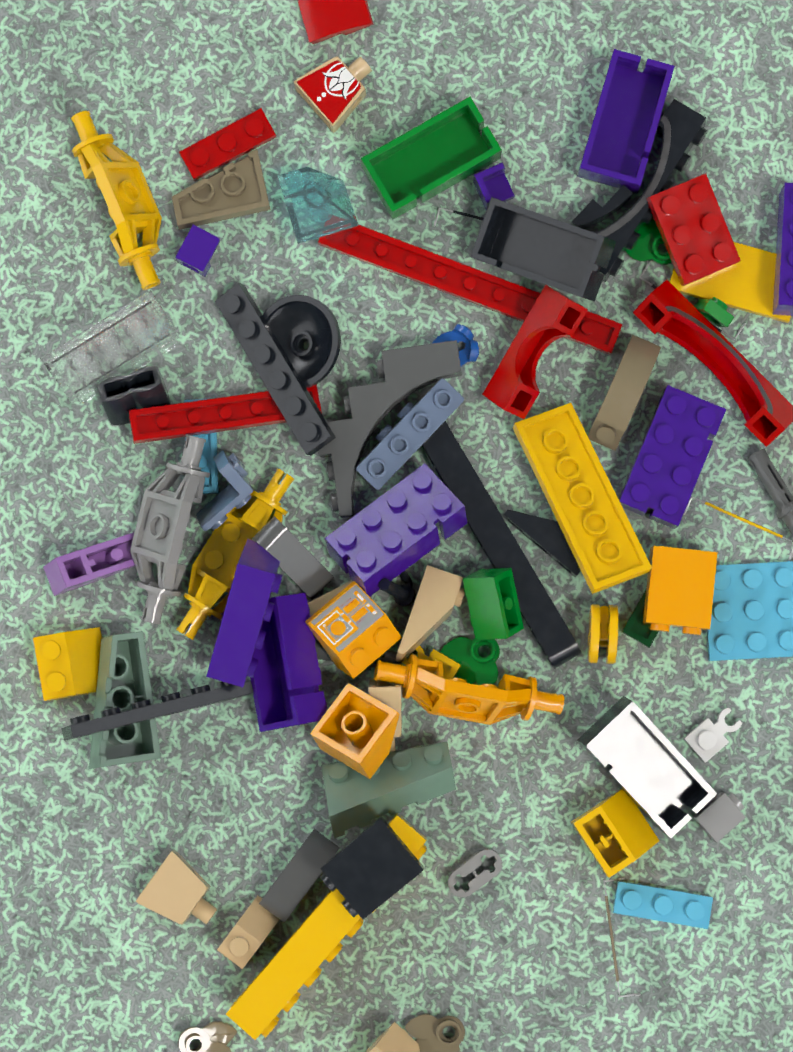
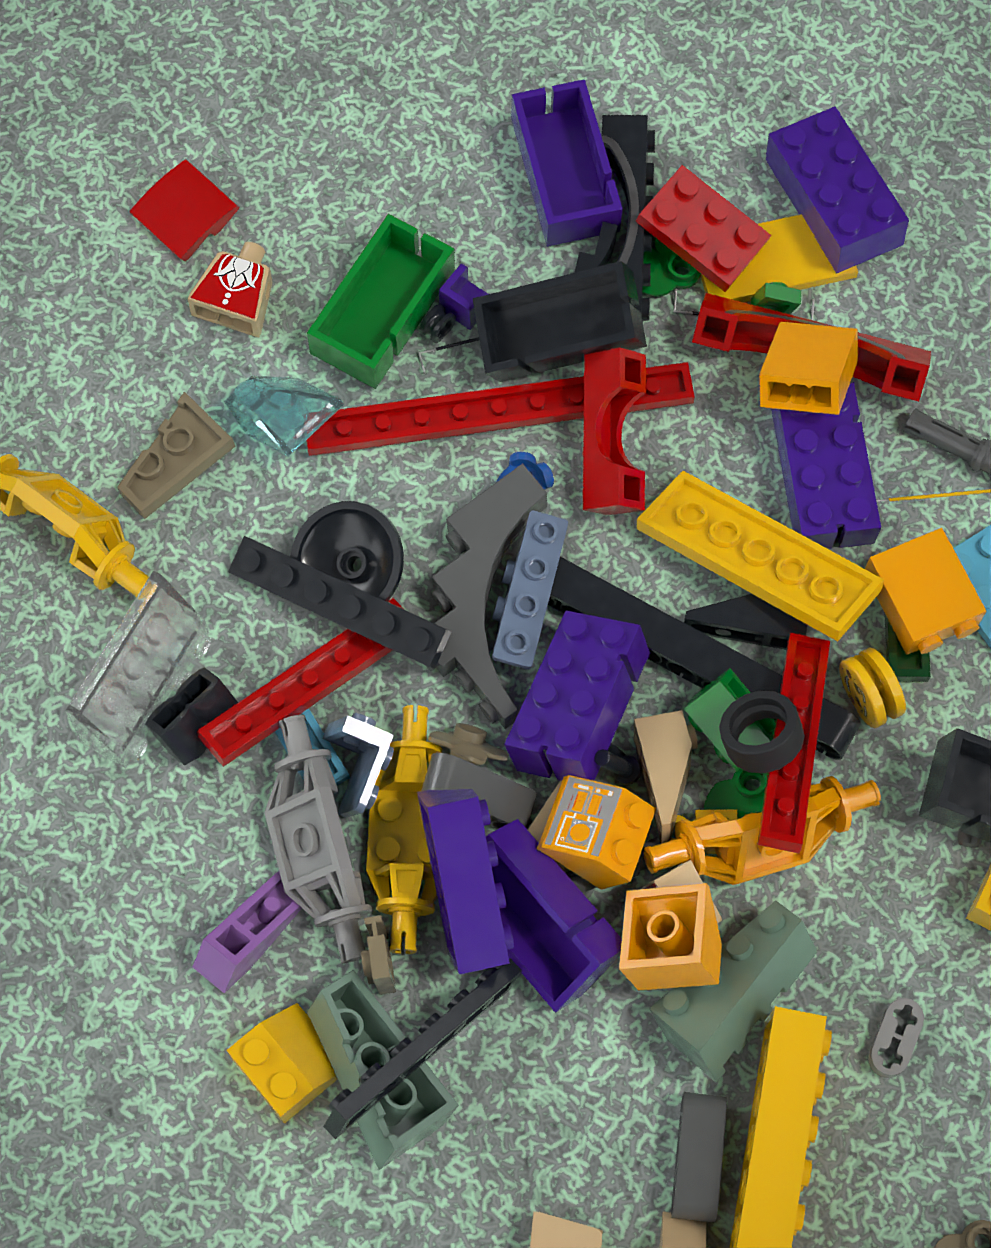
camera: 35 degrees left, 15 degrees down
(164, 633) = (378, 960): none -> dark tan plate
(197, 250) = (179, 527): dark purple panel -> none
(227, 144) = (148, 405): red plate -> none
(305, 518) = (468, 744): none -> dark tan plate
(371, 869) = (788, 1076): black slope -> none
(463, 195) = (437, 323): none -> black bush
(497, 609) = (770, 755): none -> black tyre
(518, 647) = (789, 787): none -> red plate
(624, 392) = (737, 428): dark tan arch -> none
(697, 383) = (808, 368): none -> light orange brick

